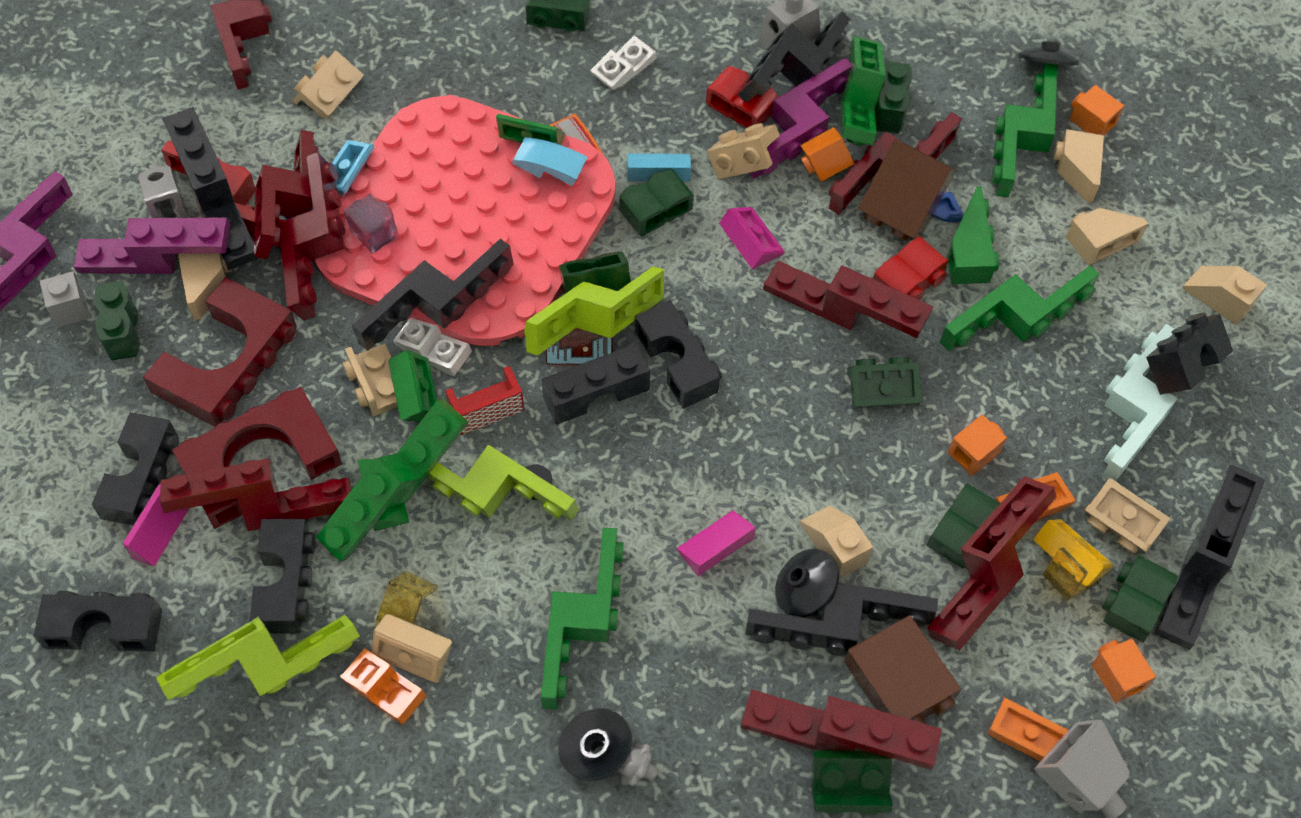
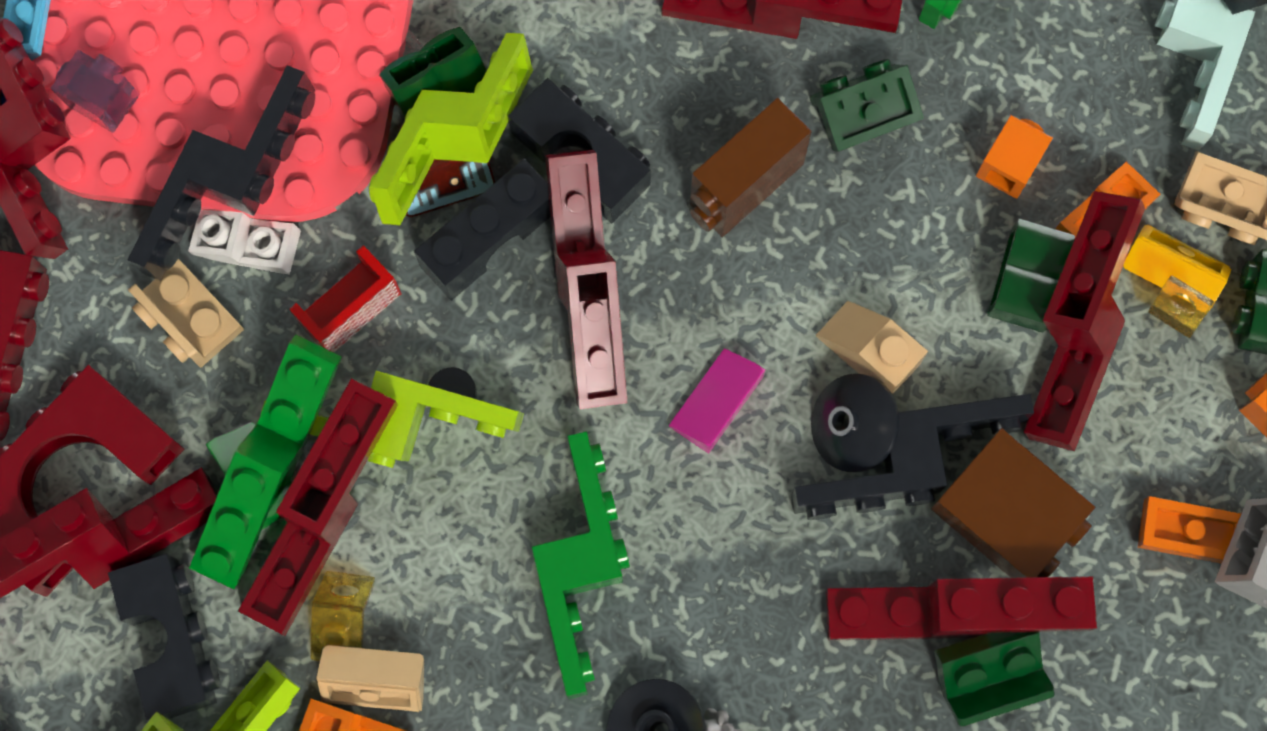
camera: 15 degrees left, 15 degrees up
(412, 385) = (242, 311): green slope -> none
(416, 521) = (318, 506): none -> dark red bracket
(651, 433) = (586, 279): none -> bracket
(787, 395) = (748, 168): none -> reddish brown brick

